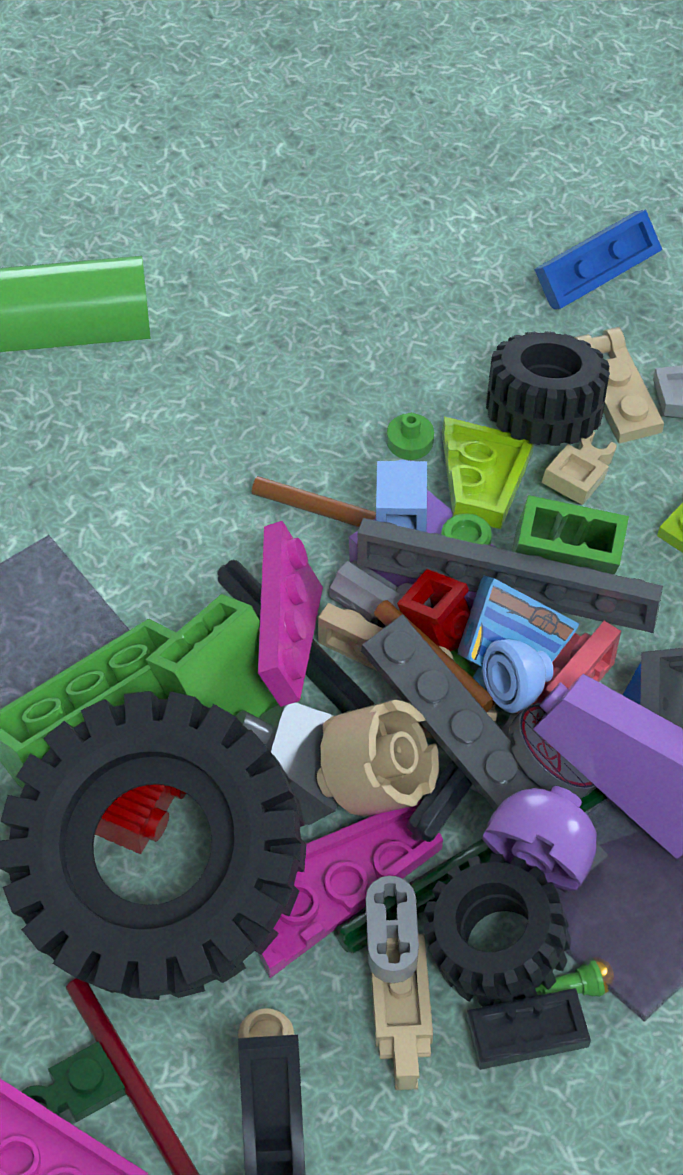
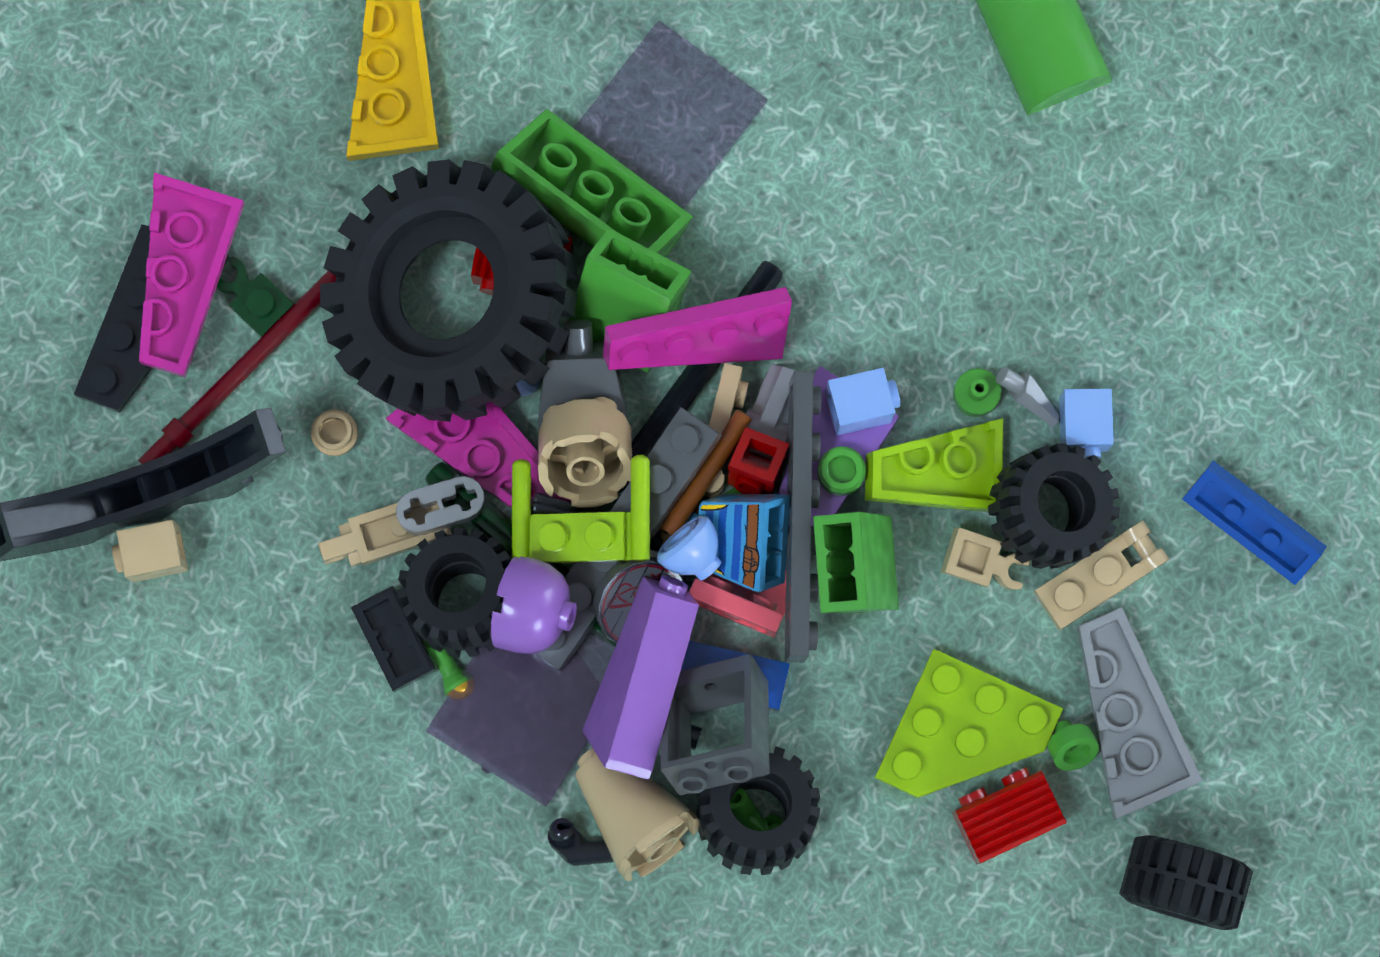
camera: 75 degrees right, 25 degrees up
(310, 502) = (873, 317): dark orange bar -> none
(424, 396) = (1028, 393): none -> light grey bar
(465, 353) = (1086, 420): none -> light blue brick
(472, 777) = (582, 535): none -> lime plate

